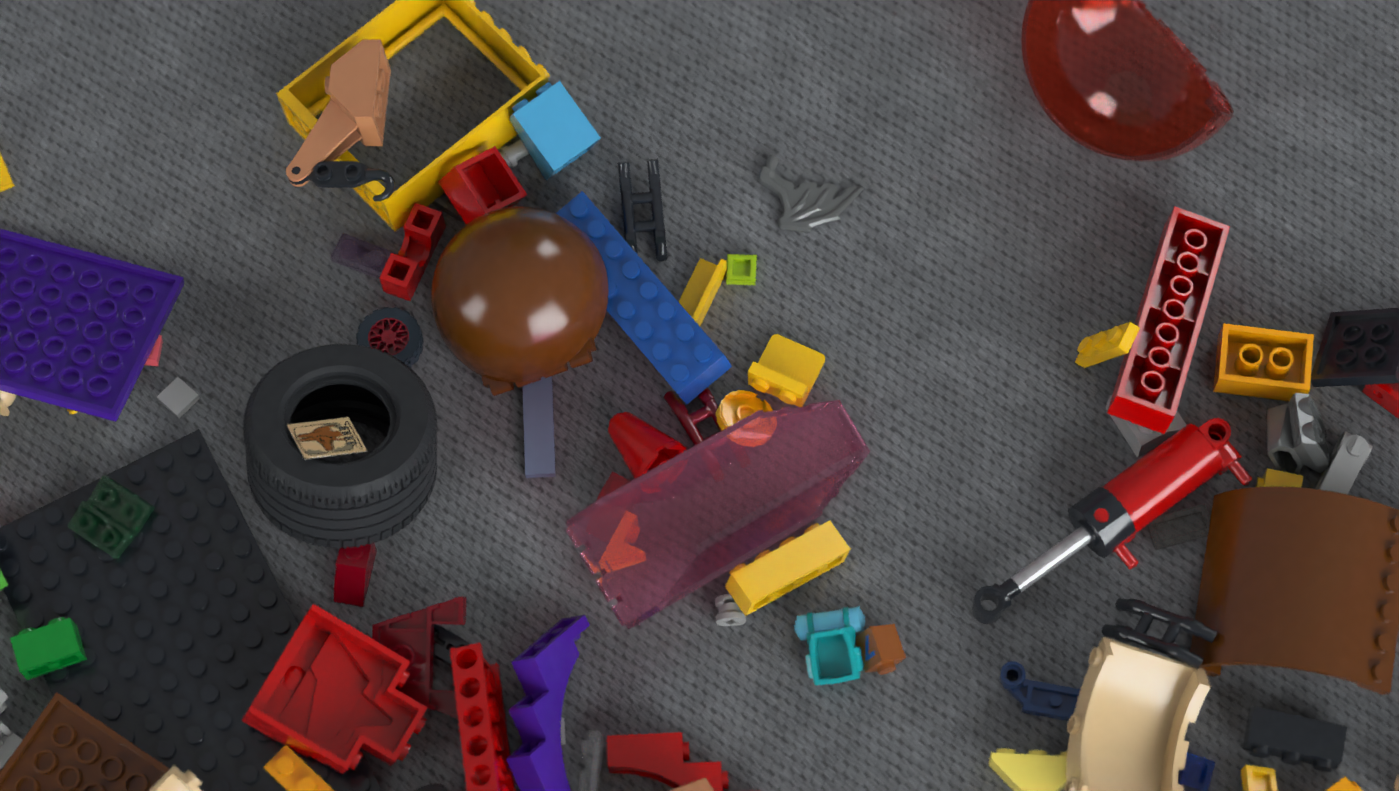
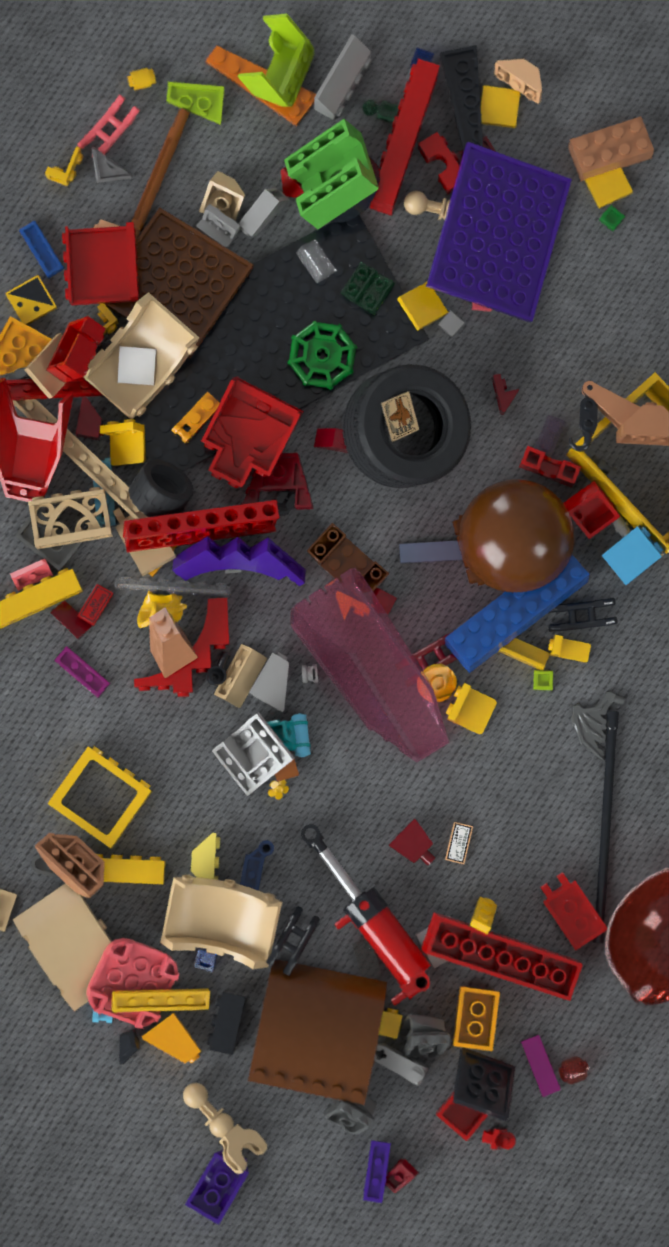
camera: 80 degrees right, 15 degrees up
(31, 166) = (611, 218): none -> green tile
(48, 647) = (281, 257): green brick -> none
(60, 597) = (315, 261): none -> clear slope
(145, 436) = (422, 306): none -> yellow tile
(226, 598) = (326, 365): none -> green plate
(302, 320) = (503, 398): none -> dark red slope
(392, 333) = (489, 455): wheel -> none
(548, 557) = (338, 554): none -> reddish brown slope
(641, 444) = (415, 618): red cone -> none
(694, 230) = (569, 649): none -> yellow bracket
(727, 753) = (218, 671): none -> black bar
(732, 720) = (241, 675): none -> tan panel
(744, 666) = (272, 682): none -> light grey slope
(786, 567) = (335, 709): yellow brick -> none
(860, 691) = (253, 754): none -> light grey slope
(916, 661) = (277, 789): none -> yellow plant
(993, 391) = (459, 843): none -> tile
(997, 454) = (413, 843): none -> dark red torso
(1093, 227) = (573, 912): none -> red tile
(1113, 194) = (612, 726): none -> black piece
(1326, 277) = (540, 1065): none -> magenta tile
(1331, 229) = (573, 1070): none -> clear red head

